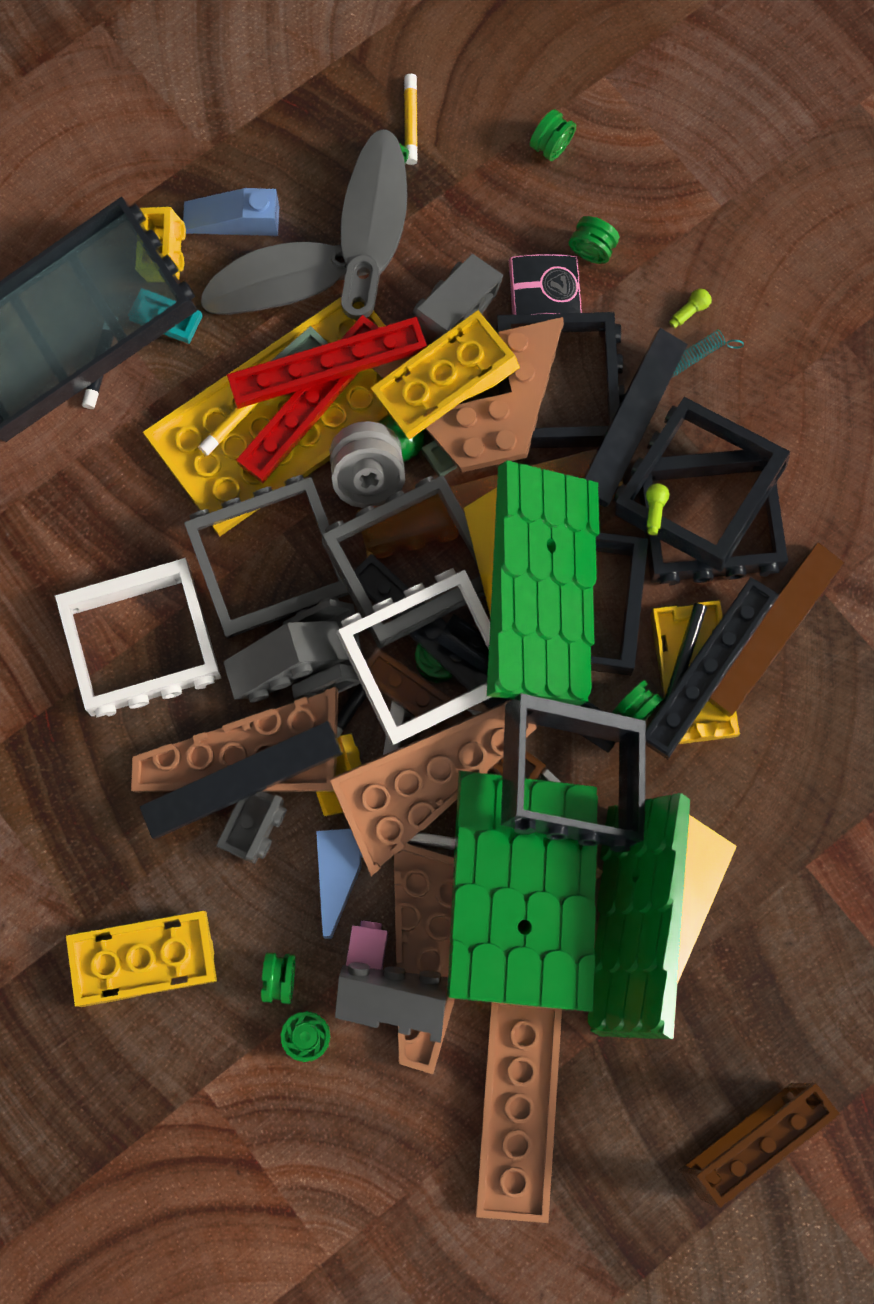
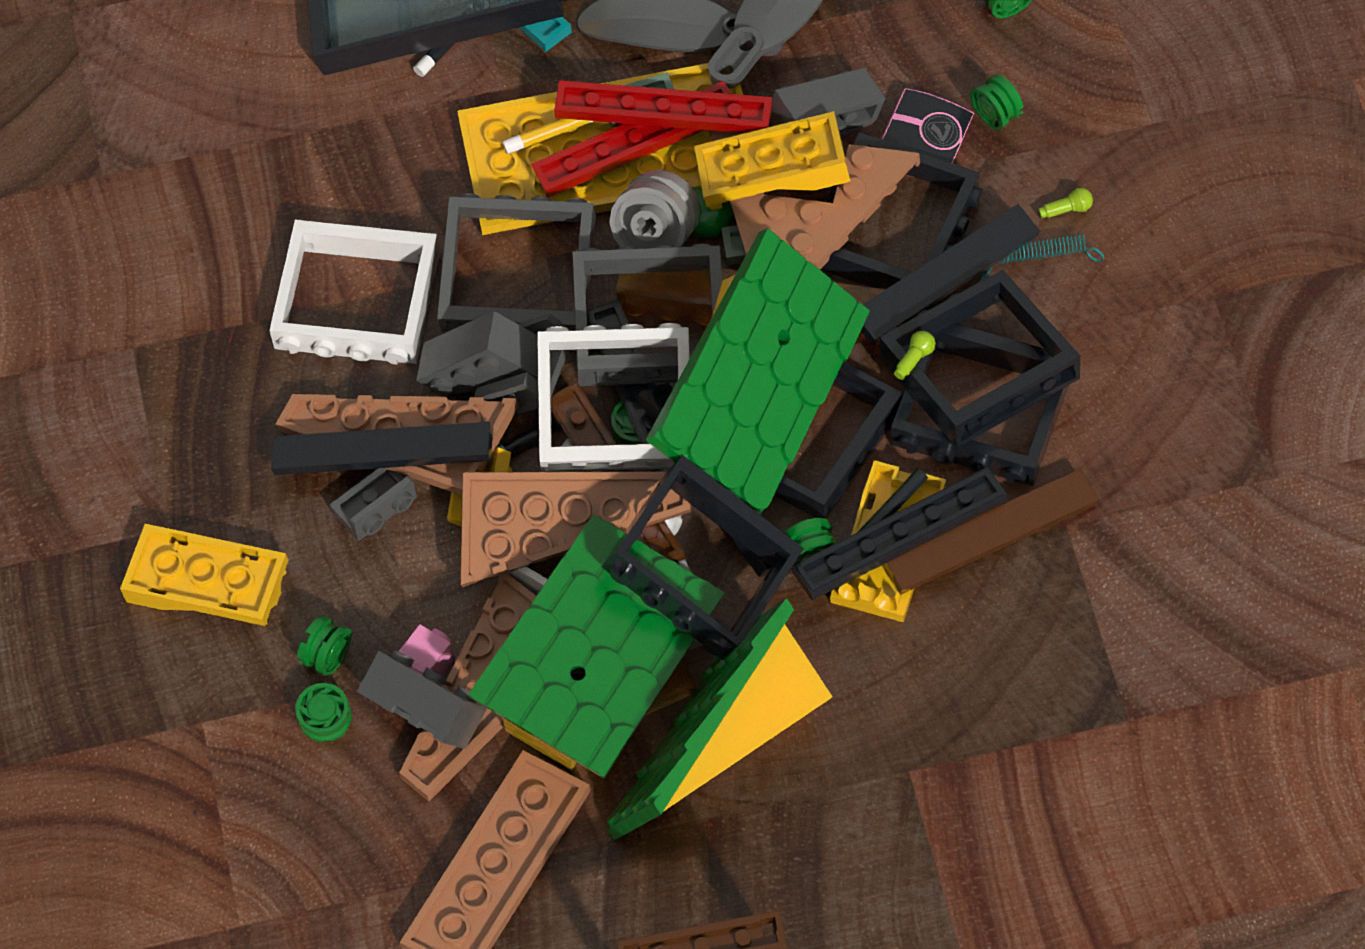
camera: 30 degrees right, 15 degrees down
(338, 870) = (430, 582): medium blue slope -> none

